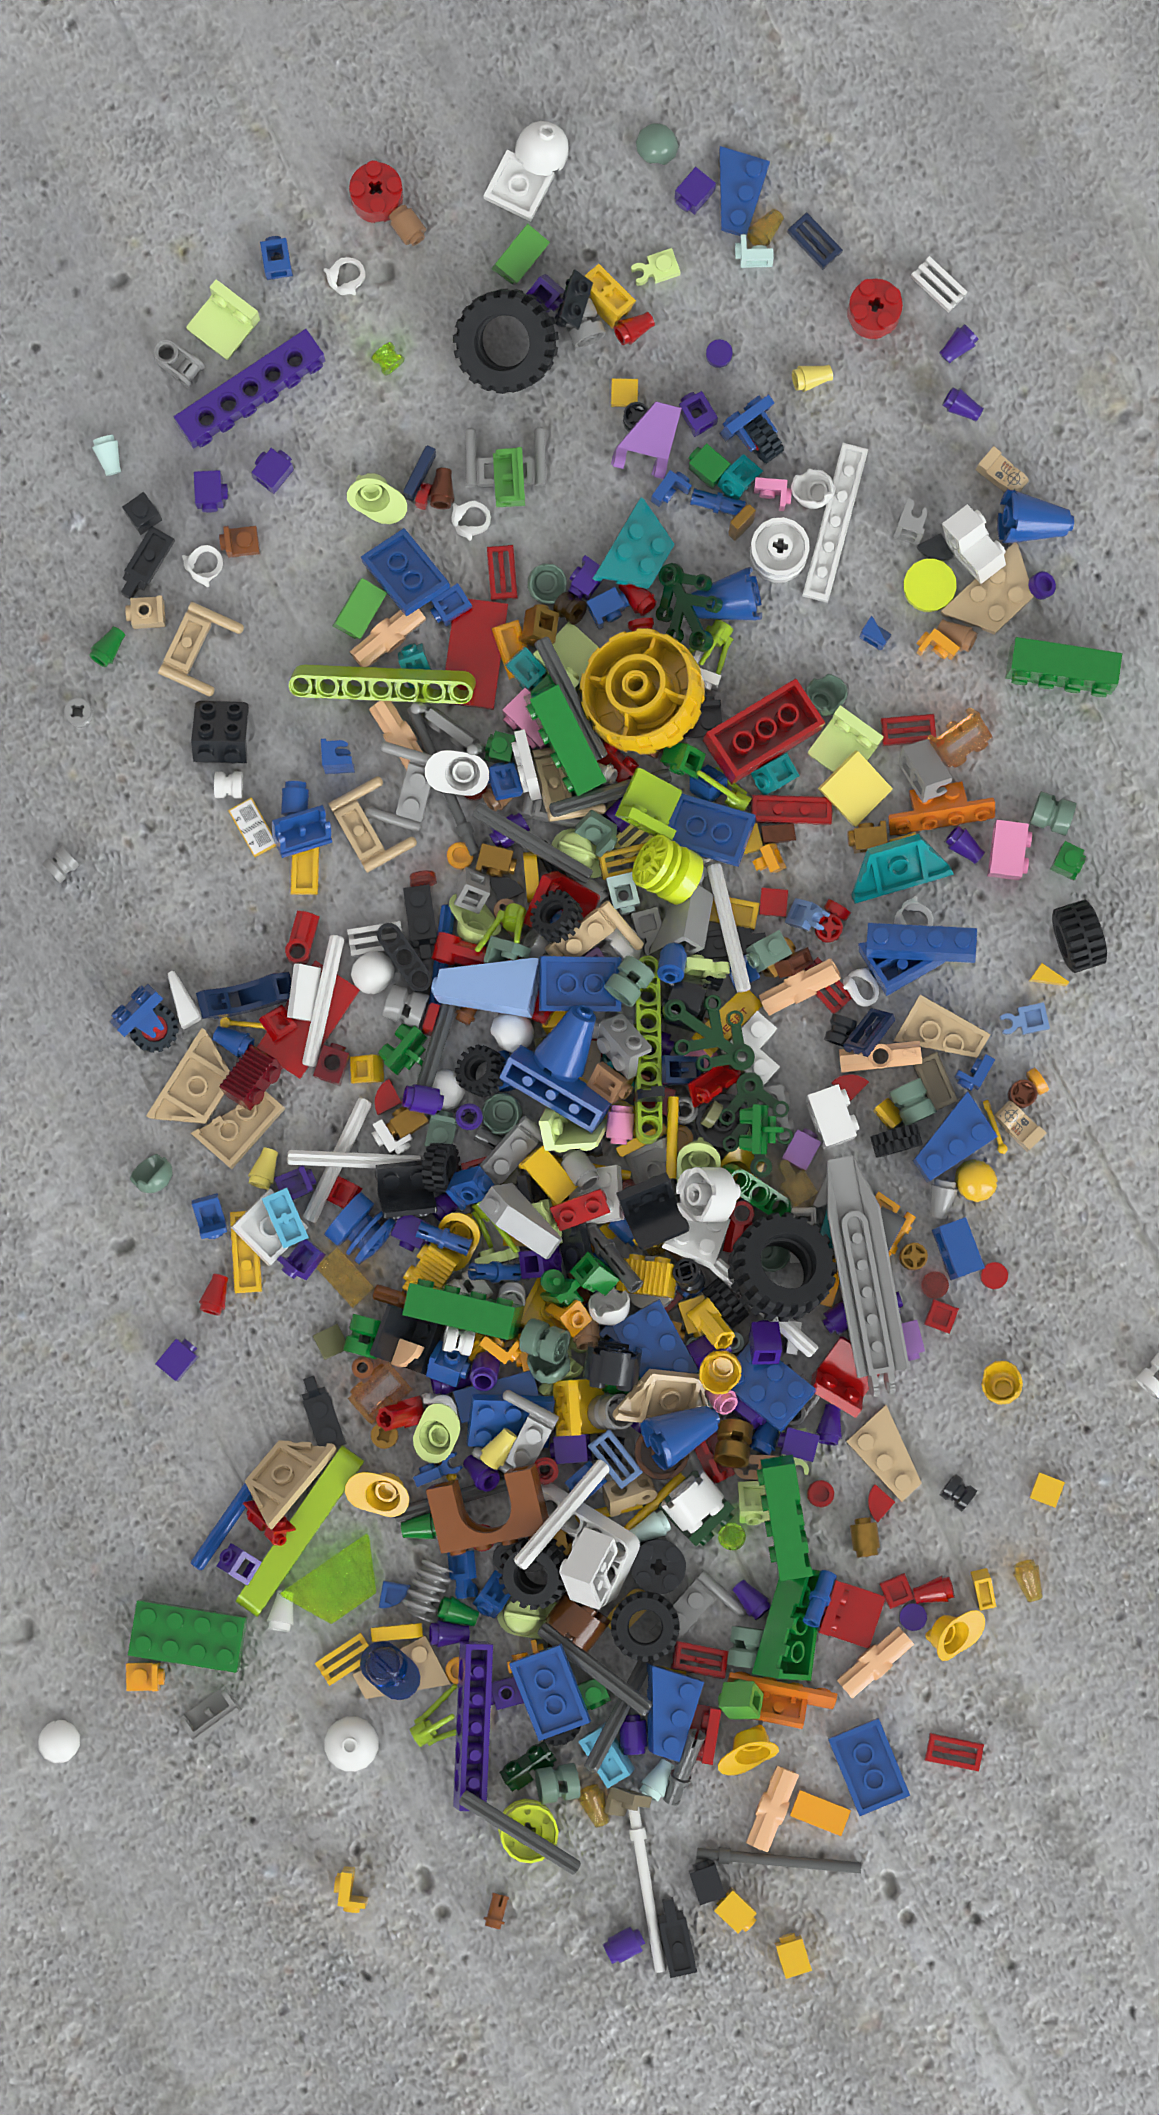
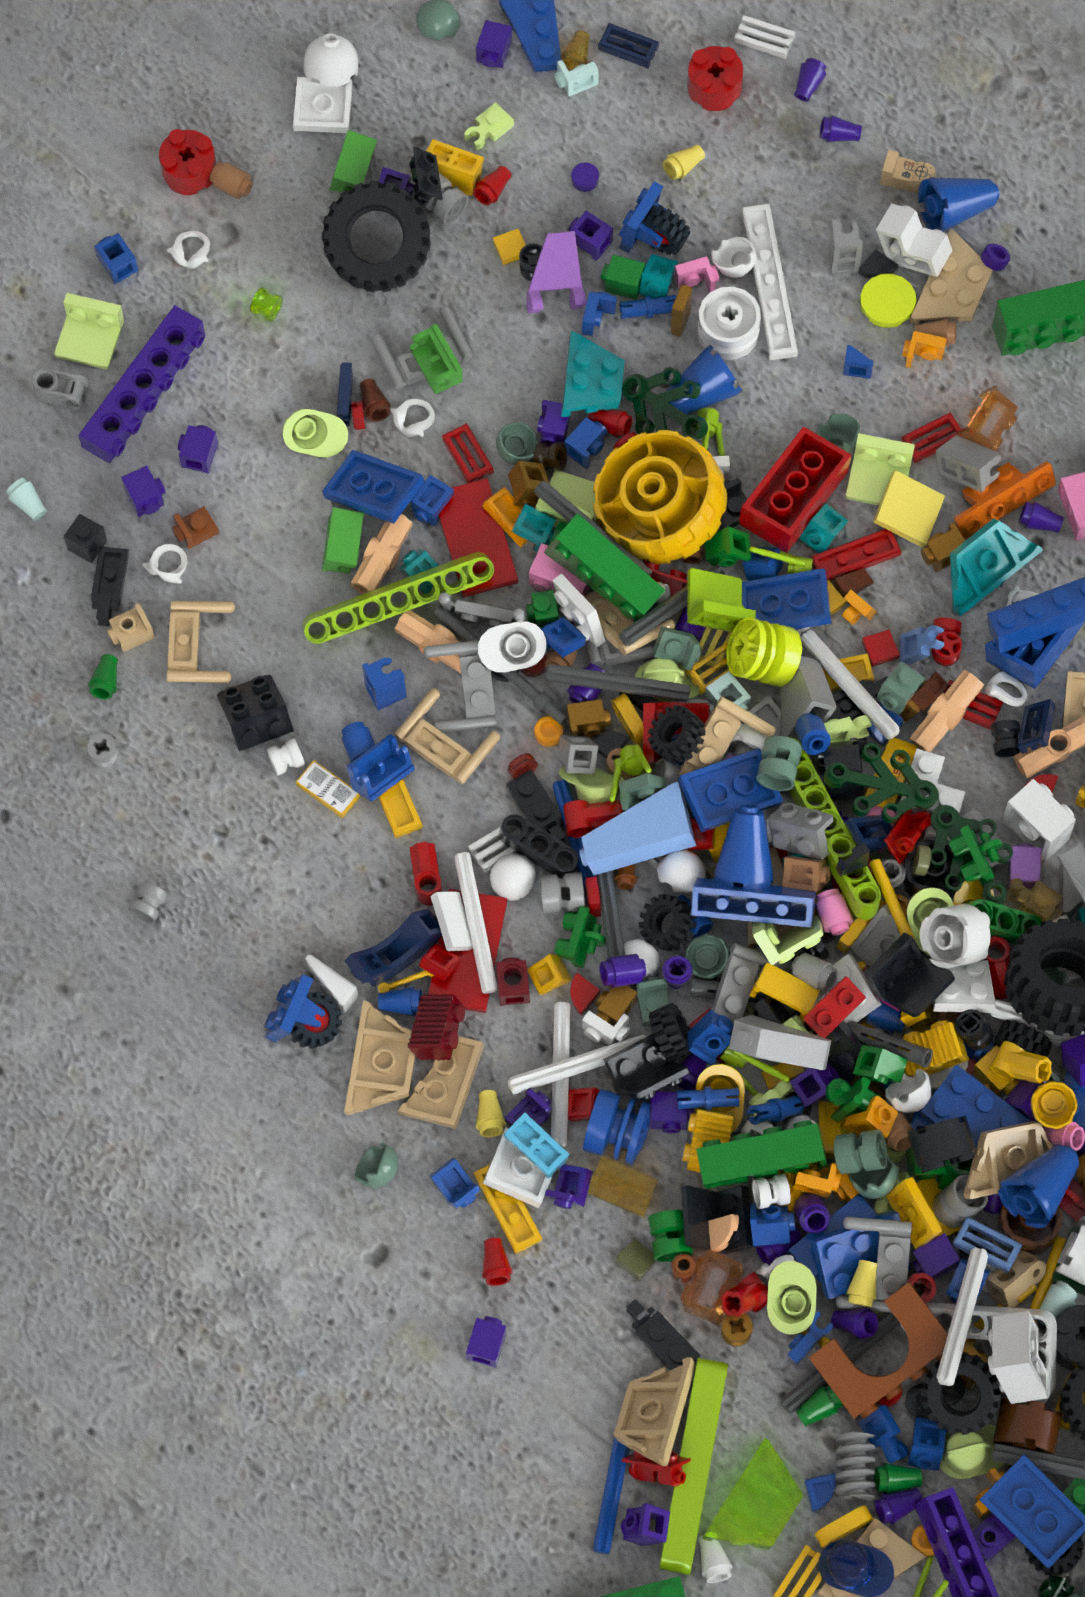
camera: 20 degrees left, 15 degrees down
(377, 1493) = (758, 1388): yellow piece -> none
(389, 1296) = (673, 1186): dark orange axle -> none

